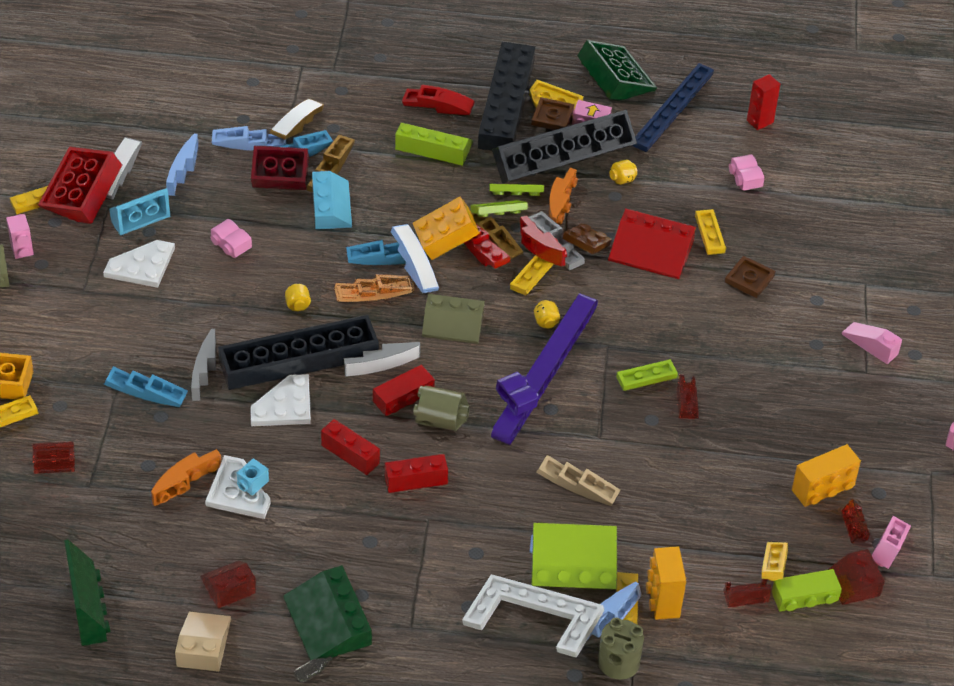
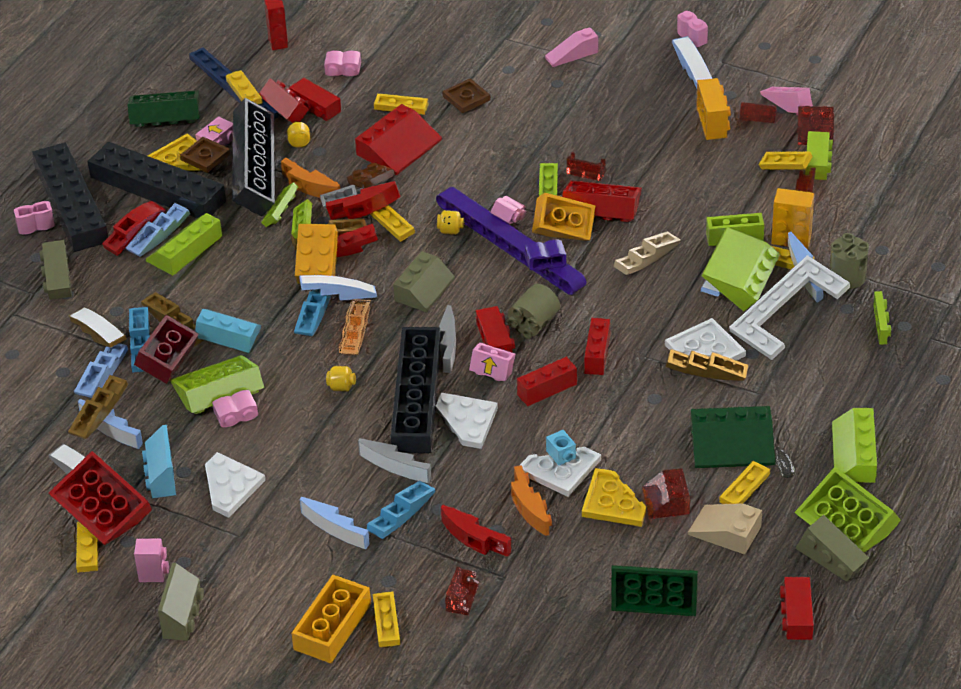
camera: 65 degrees left, 5 degrees down
(112, 342) = (329, 520): none -> slope
(129, 443) = (469, 532): none -> red slope
(179, 146) = (98, 408): none -> pearl gold slope
(209, 539) = (612, 500): none -> yellow plate
(259, 216) = (219, 380): none -> lime slope
(264, 641) = (745, 484): none -> yellow plate
(356, 70) = (55, 269): none -> olive wedge
(357, 397) = (492, 362): none -> bright pink brick
(417, 35) = (34, 217): none -> bright pink brick
(428, 570) = (709, 367): none -> pearl gold slope
(439, 118) = (158, 231): none -> light blue slope
(459, 48) = (70, 197): none -> black brick
(461, 562) = (705, 339): none -> white plate
(579, 350) = (508, 210): none -> bright pink brick
(588, 396) = (563, 218): none -> light orange slope
(637, 538) = (748, 224): none -> lime brick
(641, 422) = (609, 199): none -> red slope
(661, 146) = (284, 100): none -> brick
(664, 113) = (243, 87): none -> yellow plate
(680, 168) = (317, 99): none -> red brick
(905, 443) = (691, 59): none -> white slope

